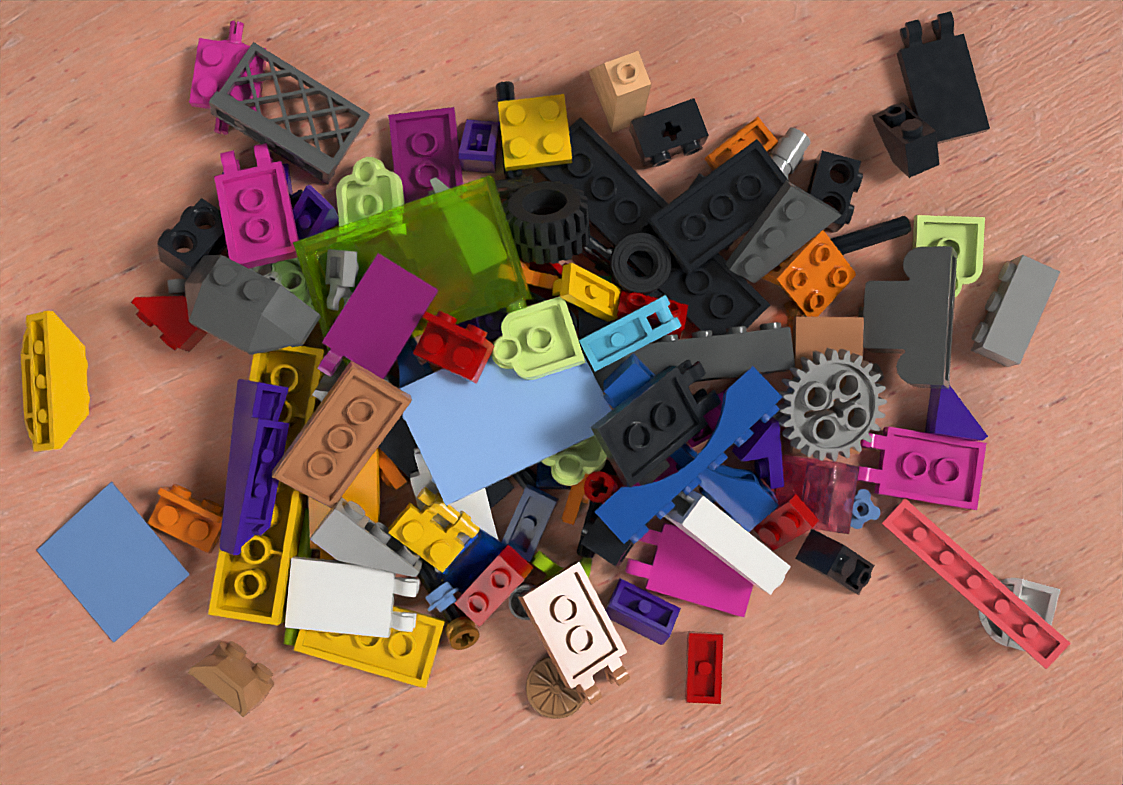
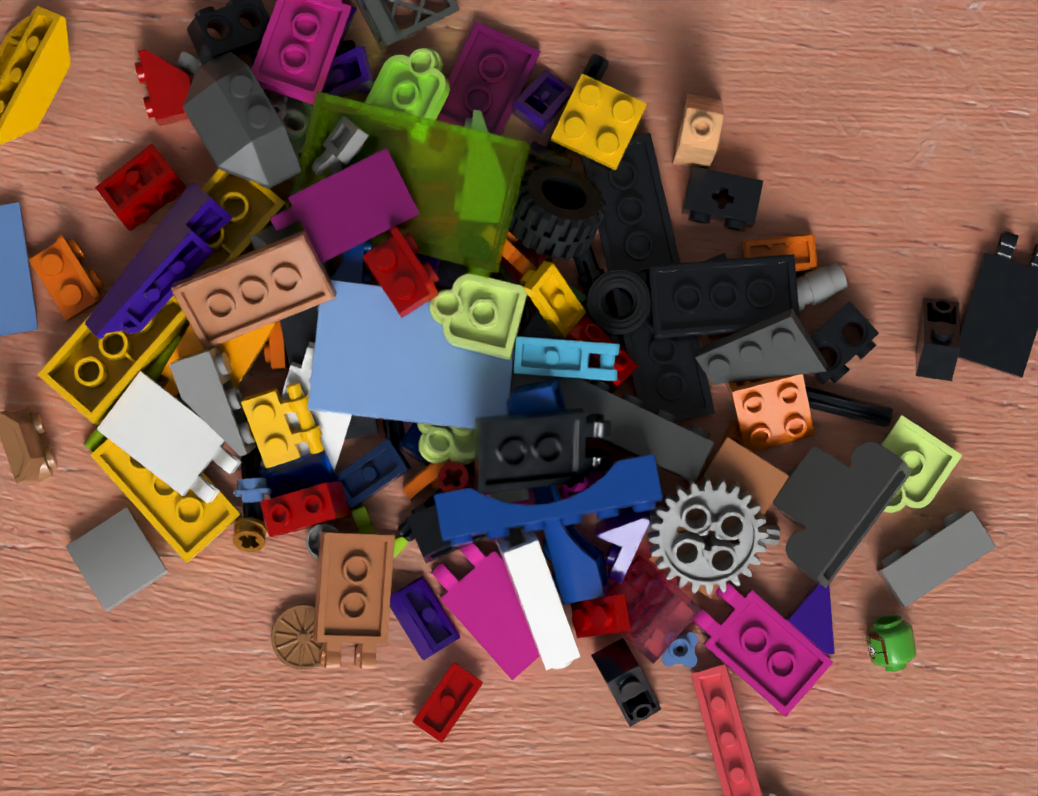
camera: 30 degrees right, 0 degrees up
(202, 410) = (140, 187): none -> red bracket
(367, 720) = (117, 559): none -> light grey slope
(1022, 399) = (891, 642): none -> bright green head

